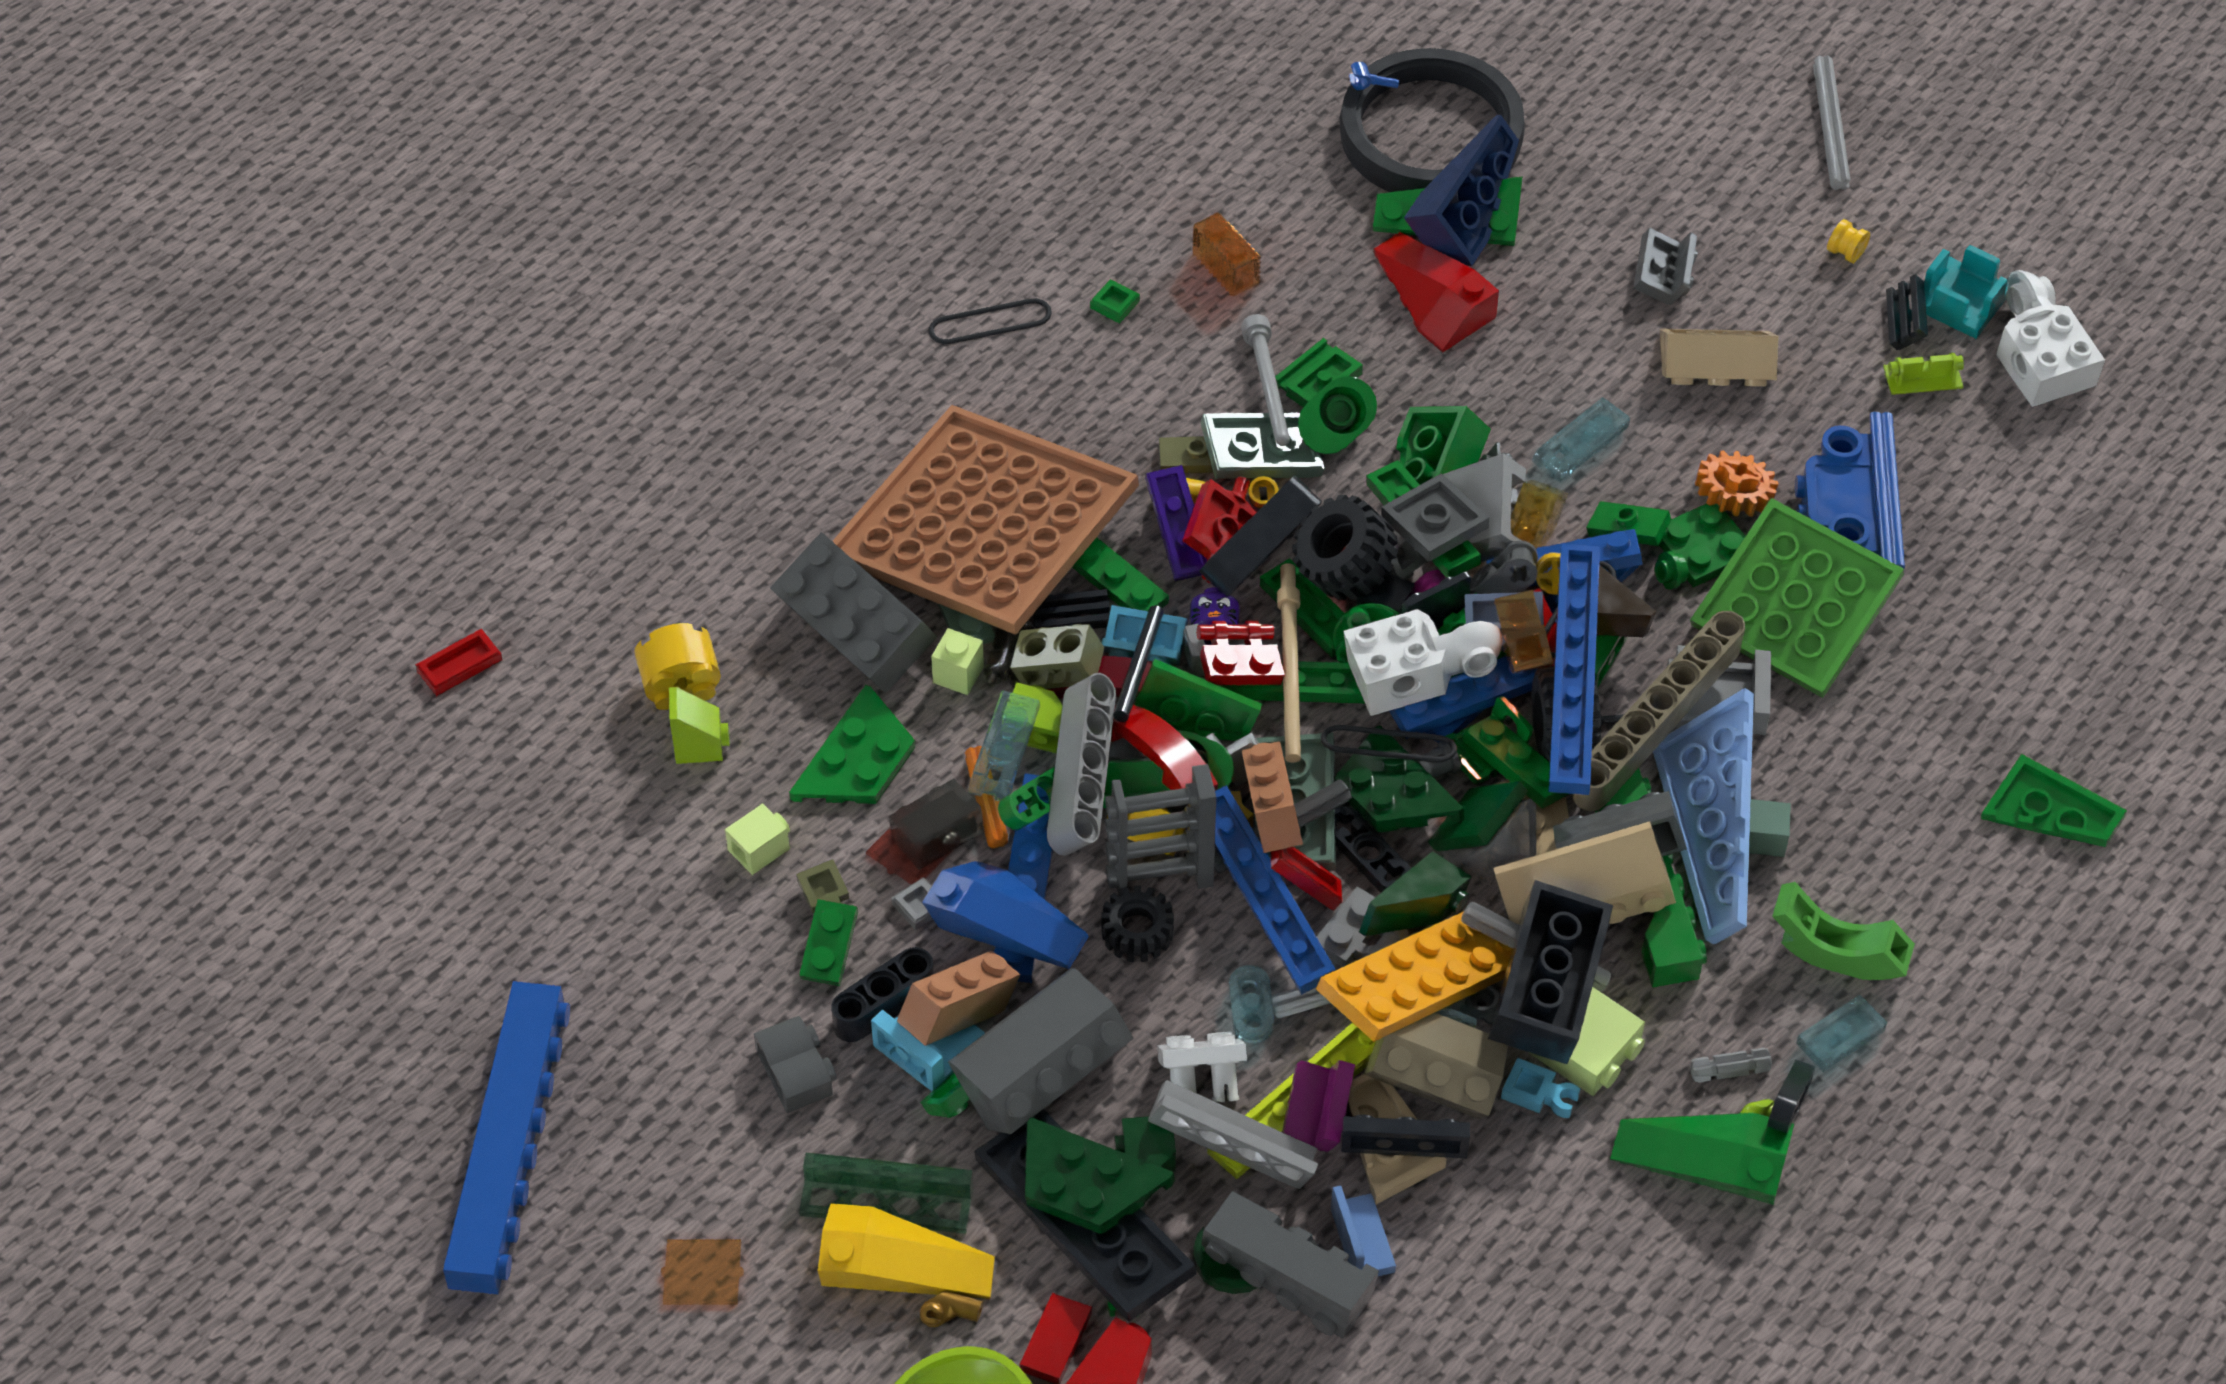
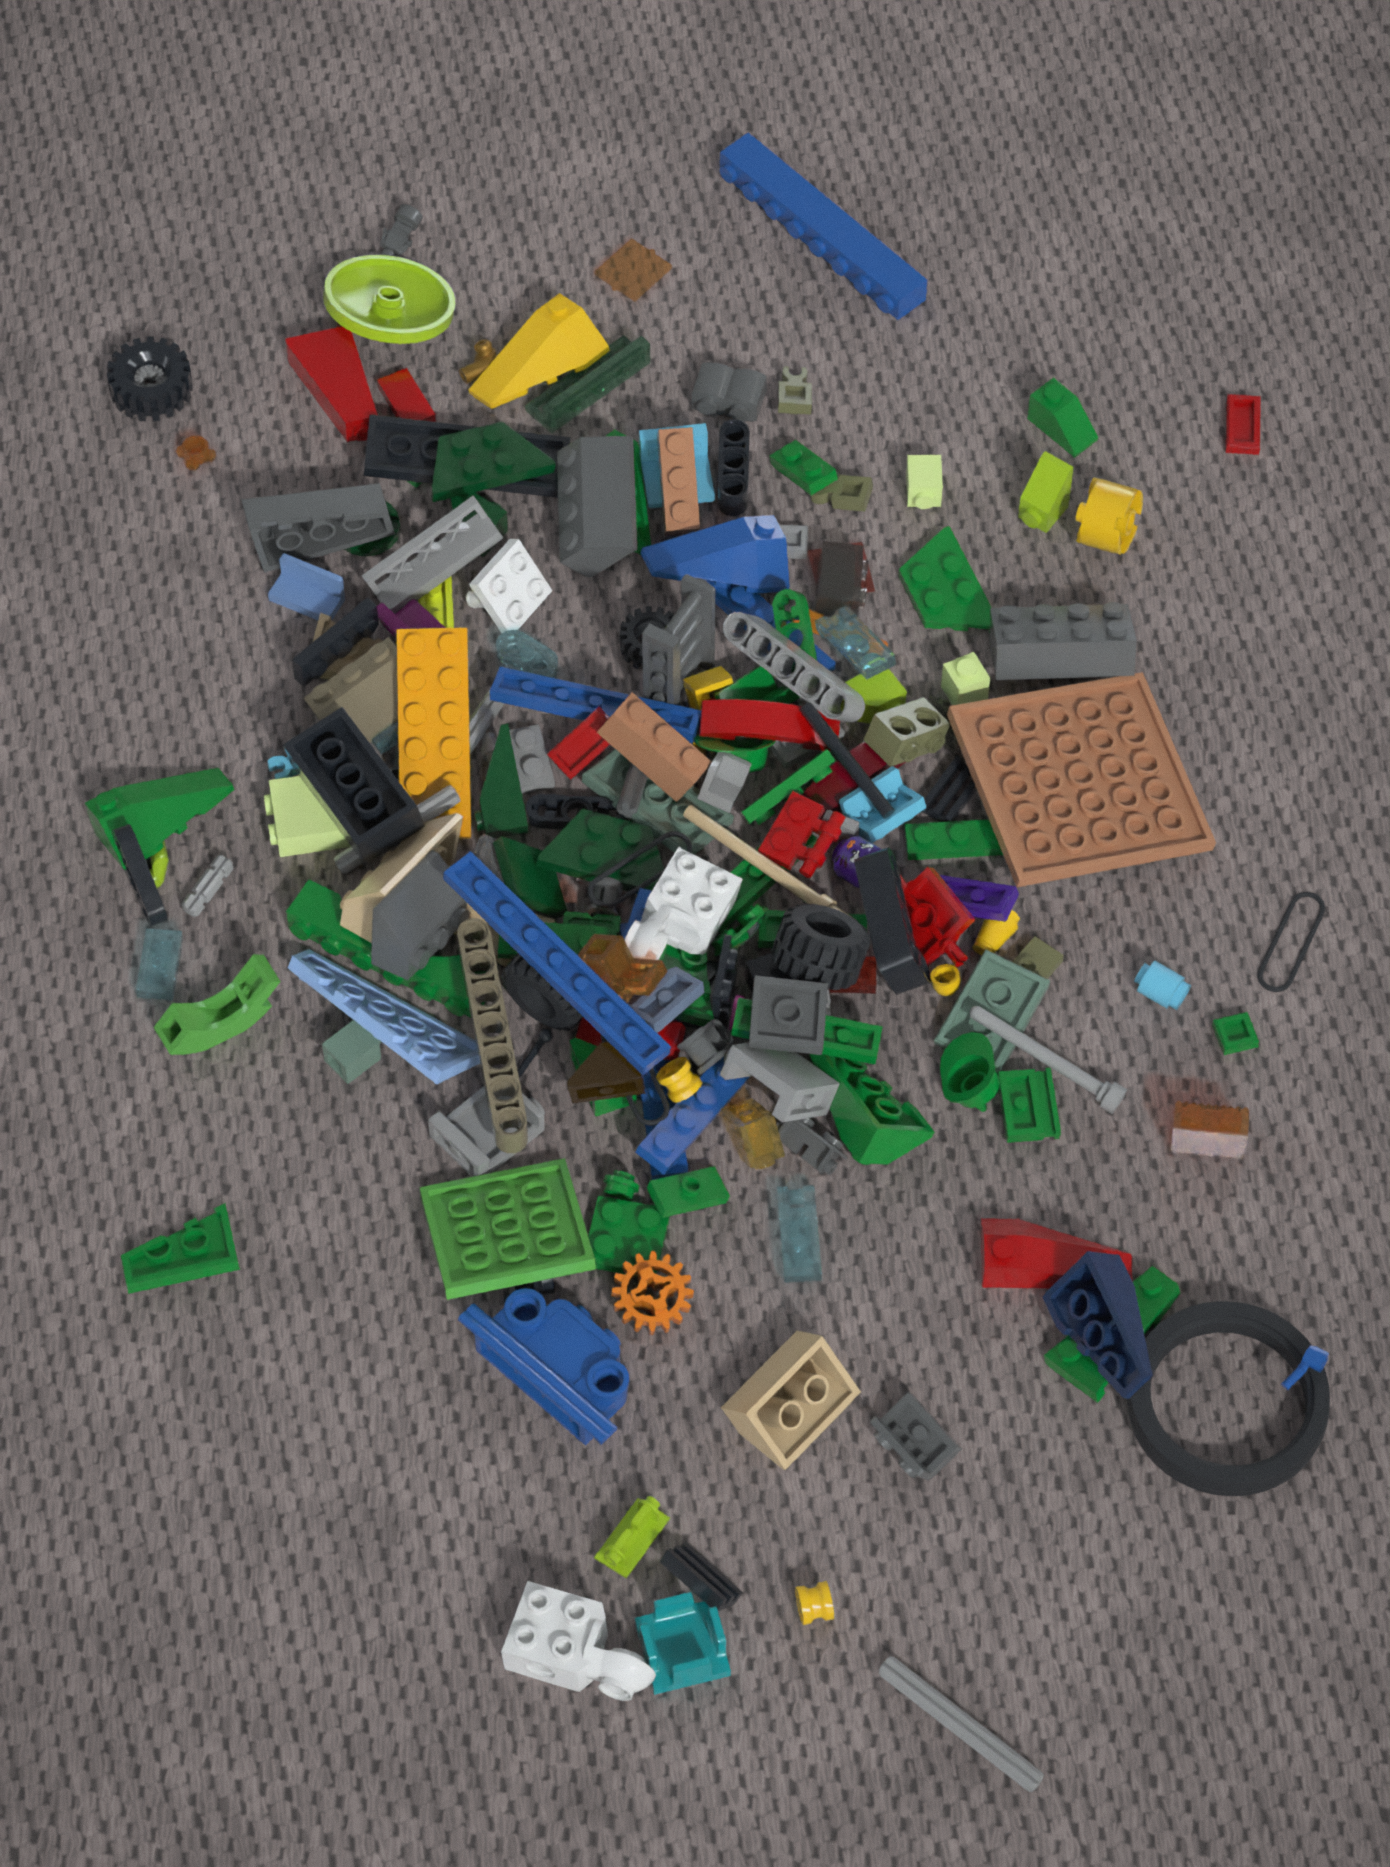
camera: 130 degrees right, 5 degrees up
(581, 791) = (1061, 417): none -> green slope
(745, 1011) = (794, 393): none -> olive plate
(1122, 360) = (1162, 985): none -> medium azure brick

